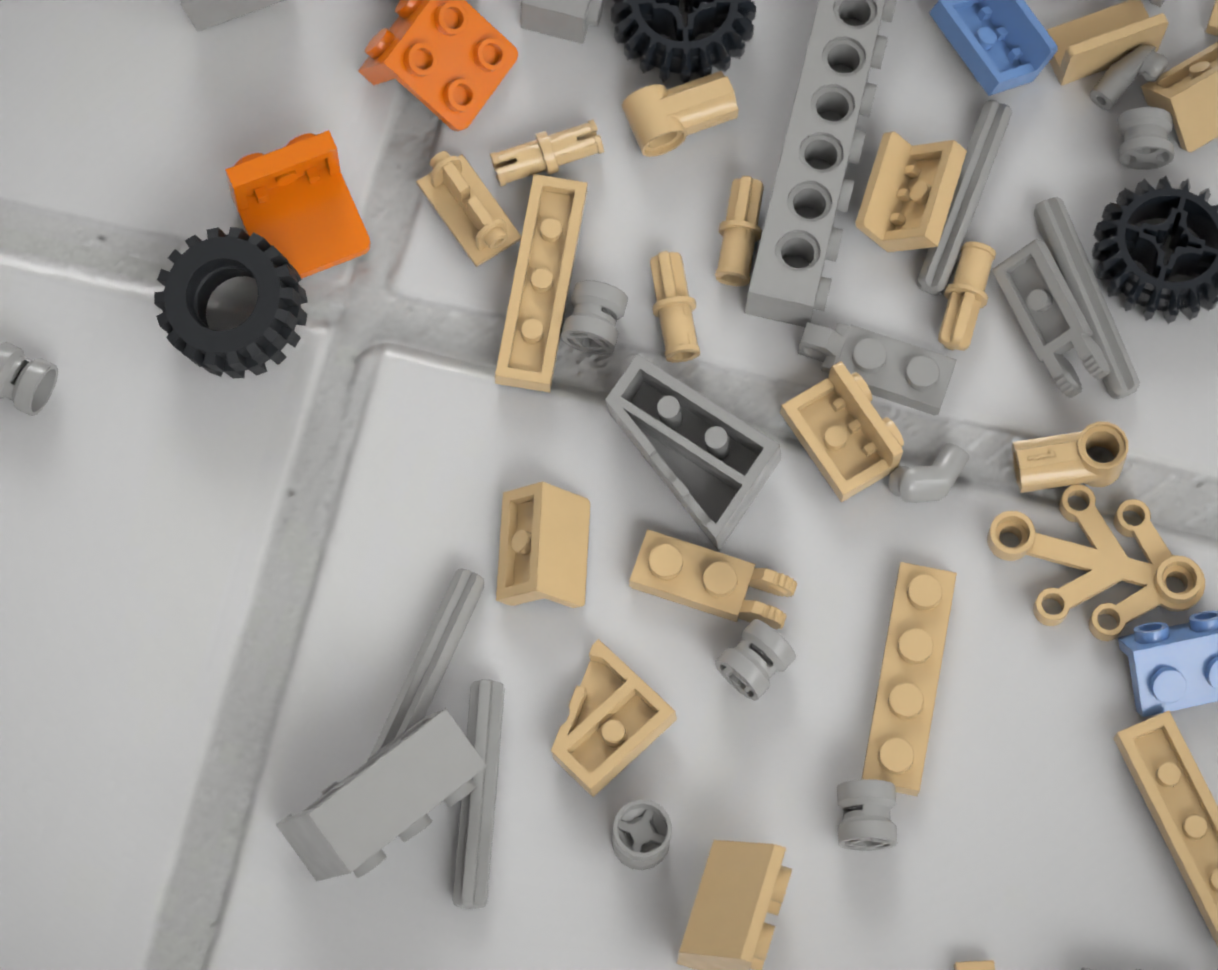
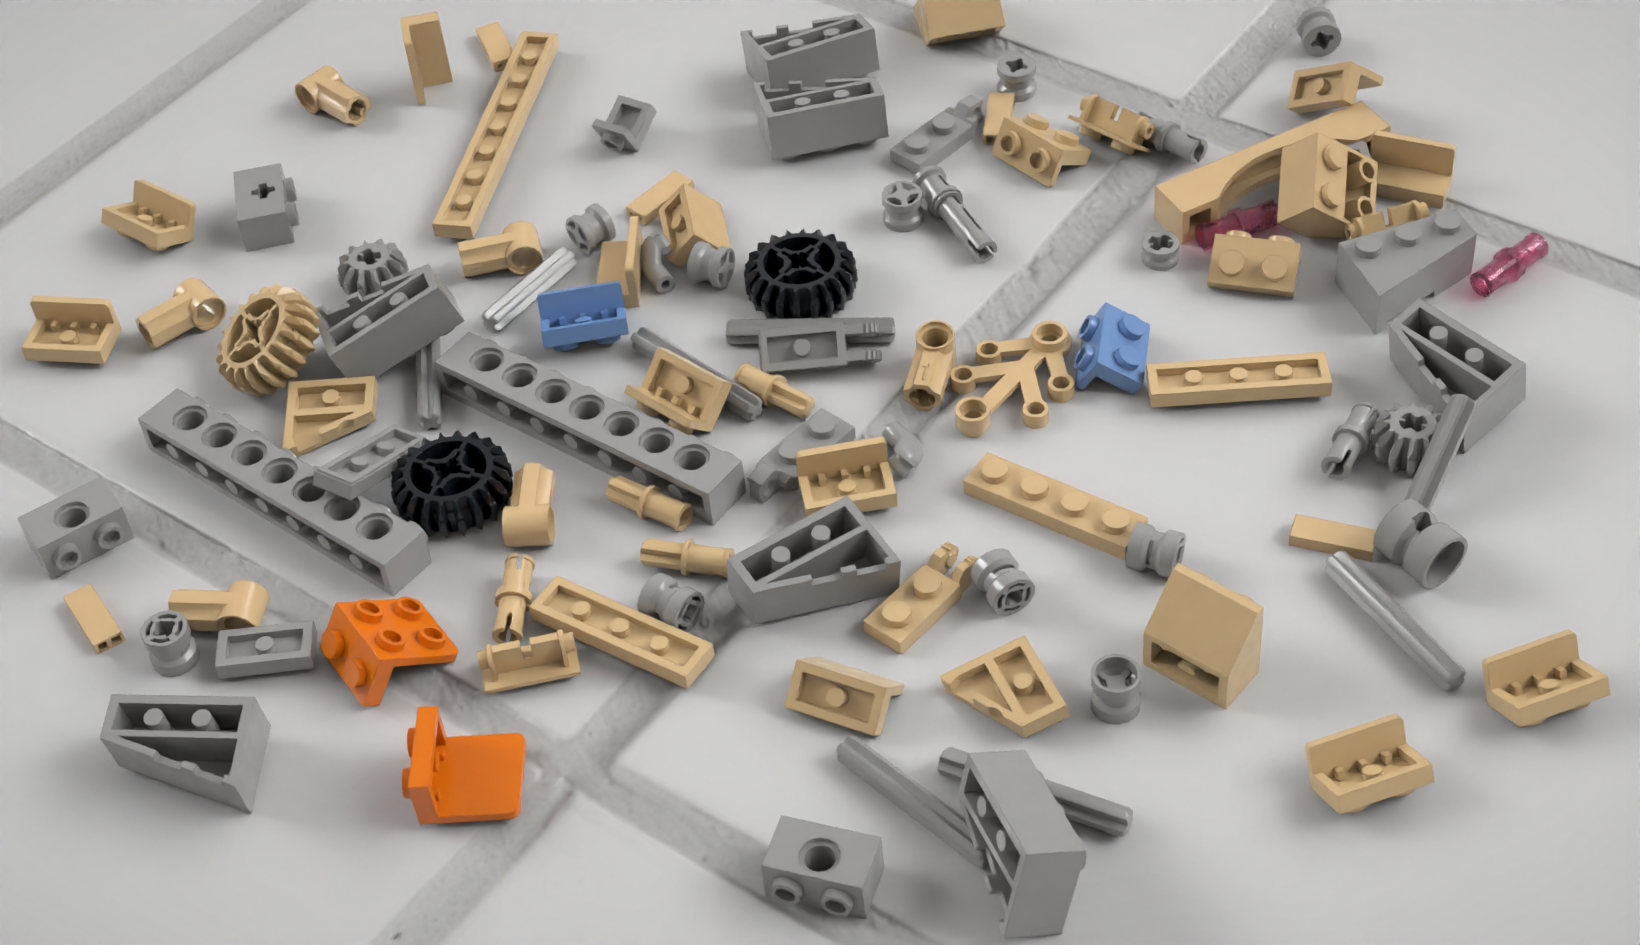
camera: 60 degrees left, 25 degrees down
(196, 277) = (517, 792): black tyre -> none
(304, 646) = (804, 847): none -> light grey brick

